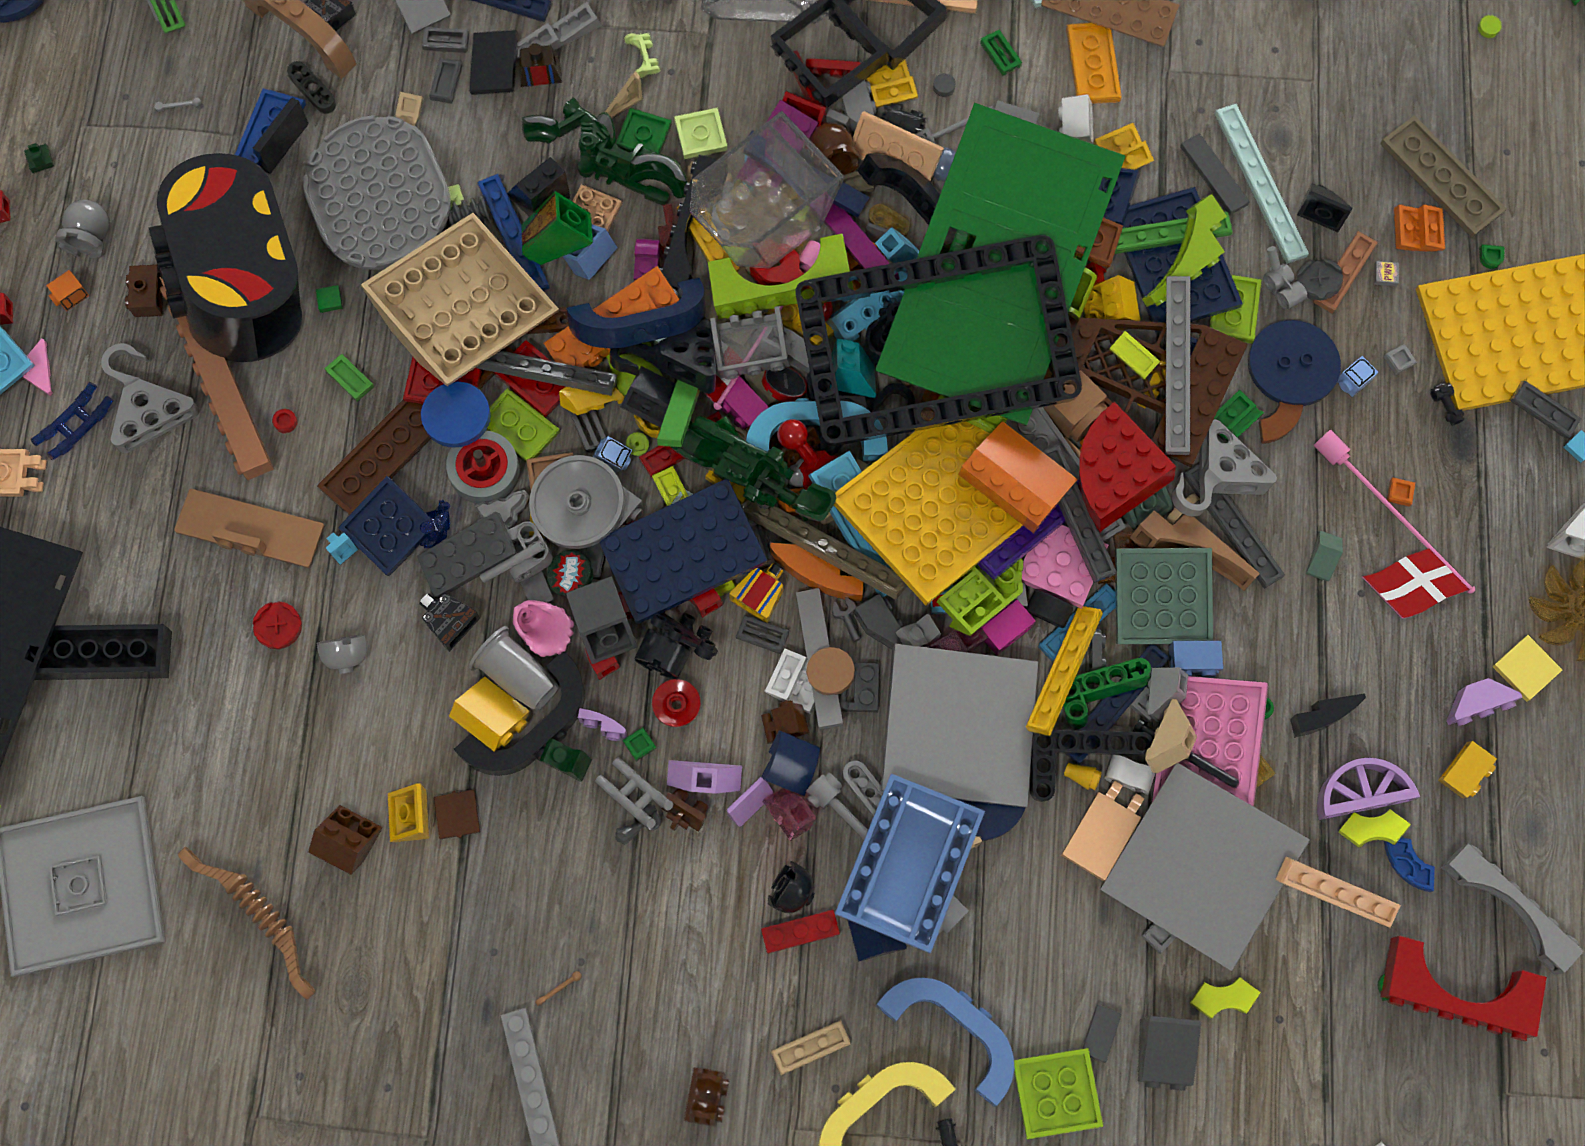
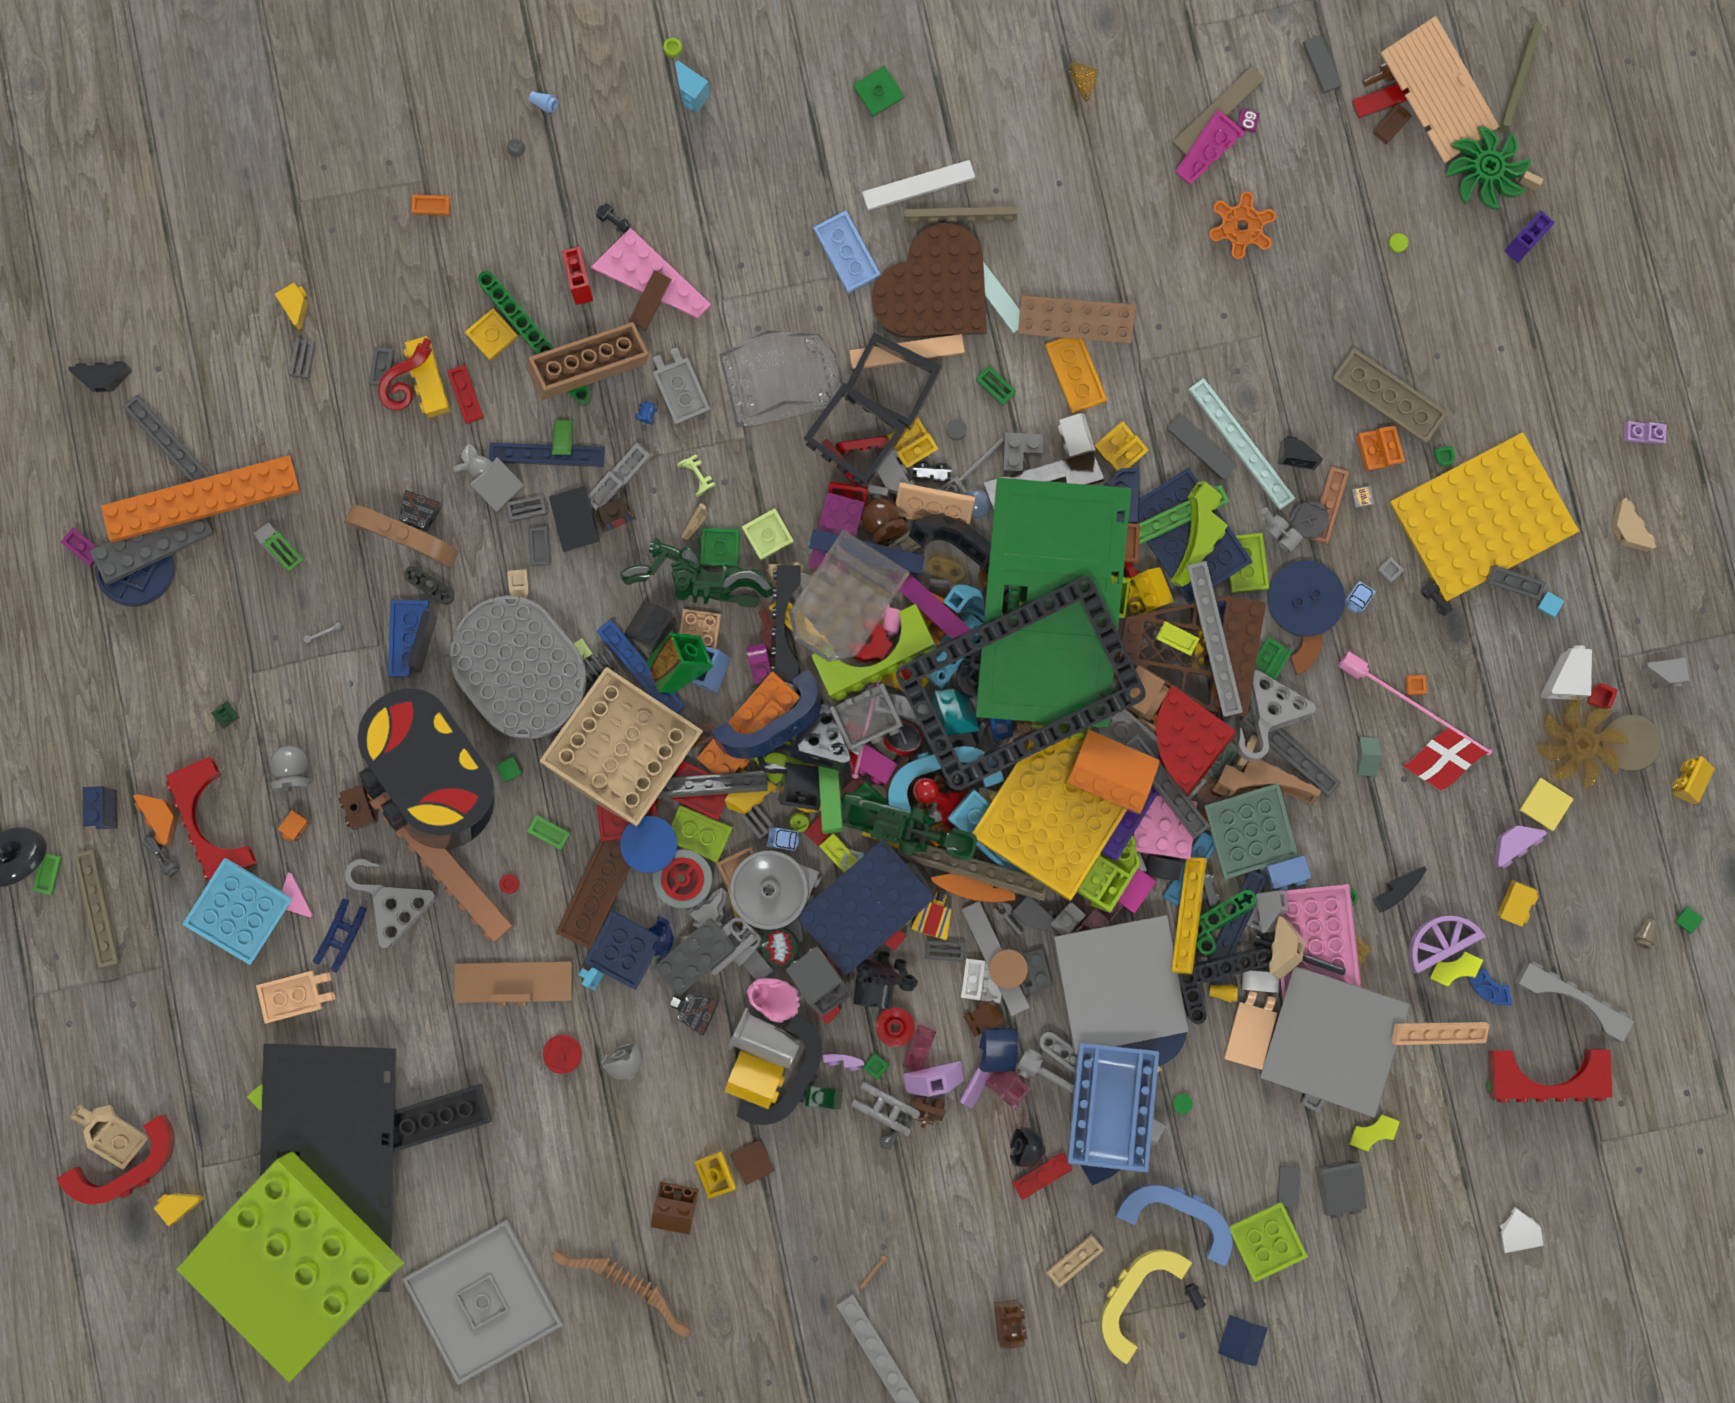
camera: 15 degrees left, 10 degrees up
(697, 735) = (919, 1048): none -> clear pink slope
(901, 393) = (1000, 728): none -> blue slope
(996, 894) = (1182, 1104): none -> green tile

